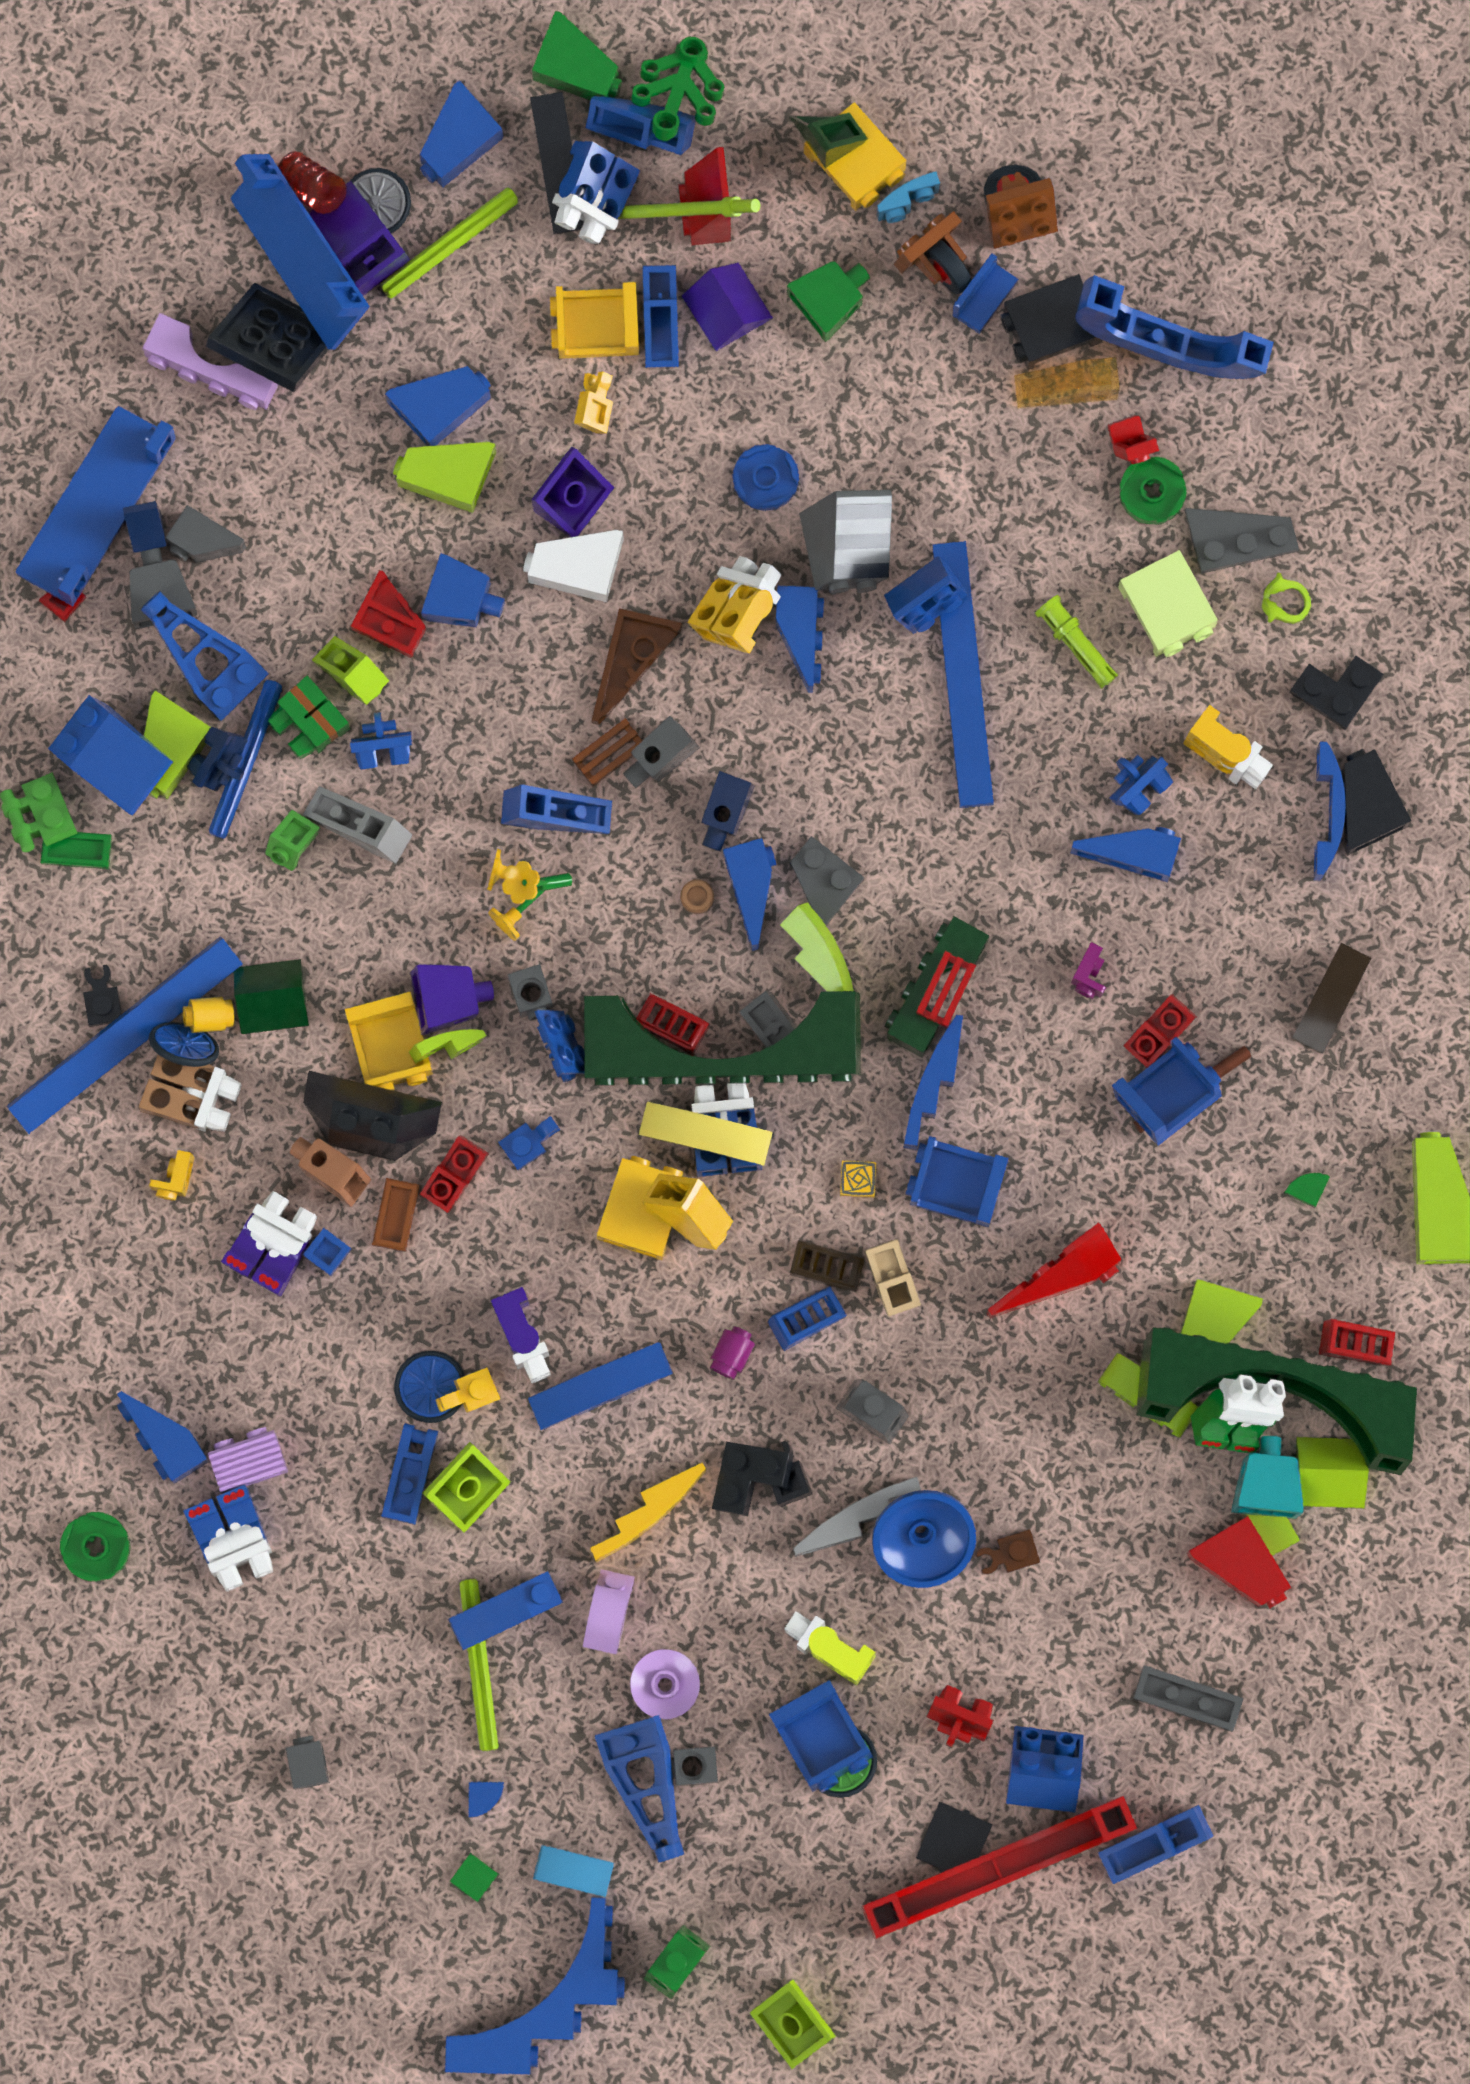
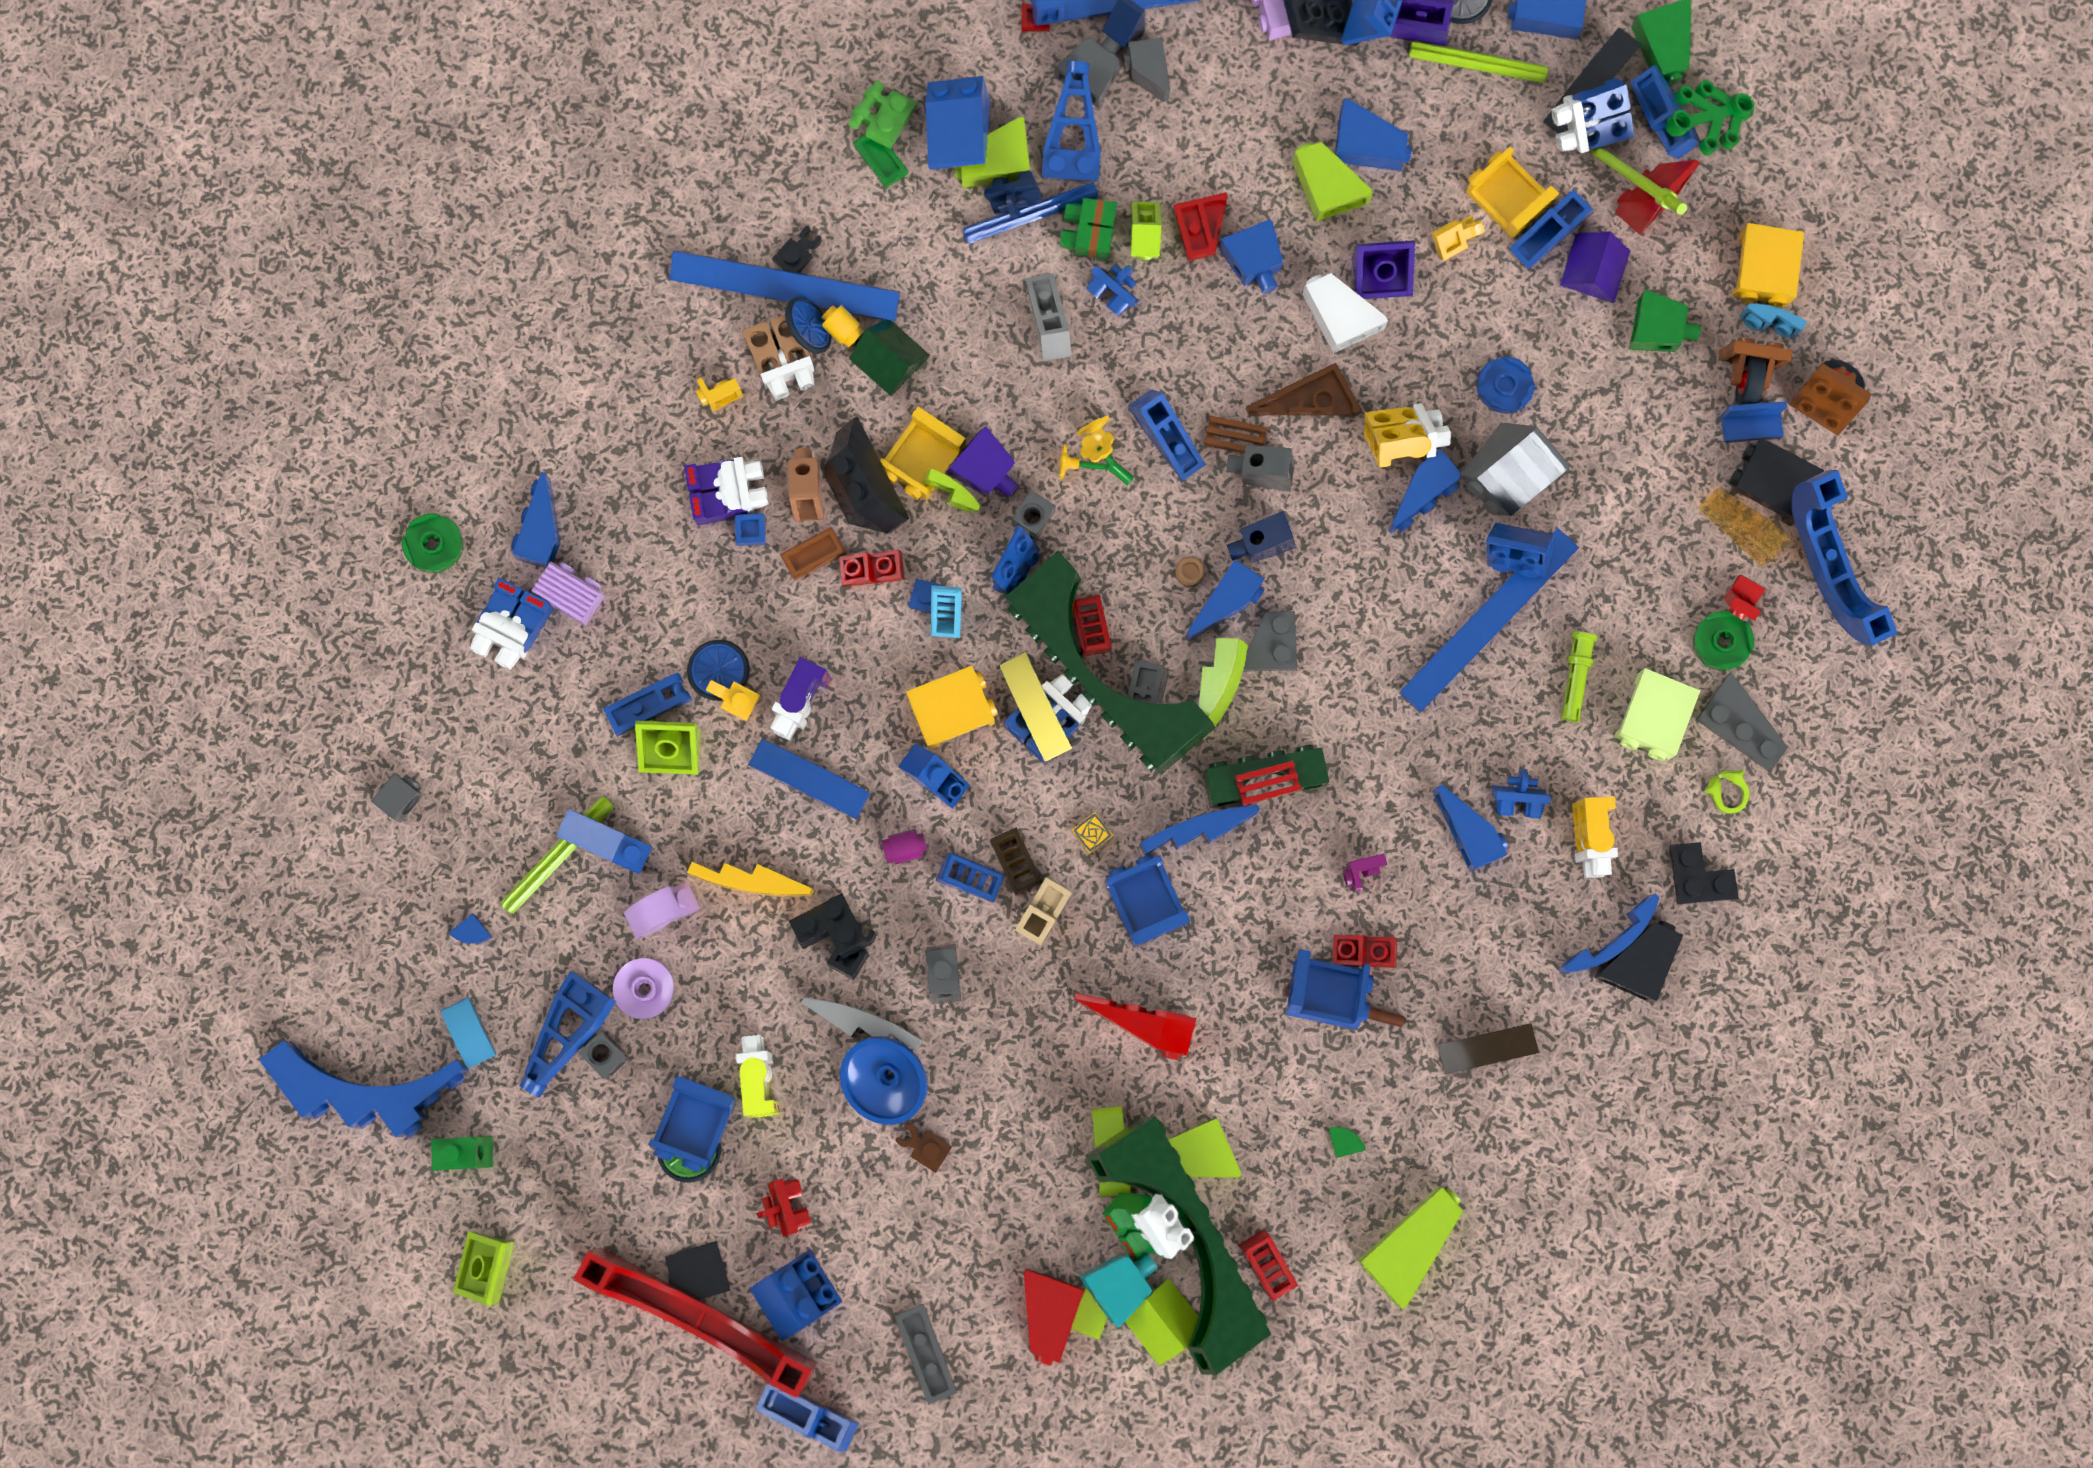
camera: 45 degrees right, 0 degrees up
(291, 840) = (1002, 283): bright green bracket -> none
(474, 1877) = (411, 970): green tile -> none
(554, 1131) = (946, 627): none -> medium azure slope
(689, 1209) = (972, 737): yellow slope -> none
(689, 1273) = (933, 775): none -> blue slope
(830, 135) = (1768, 234): dark green slope -> none

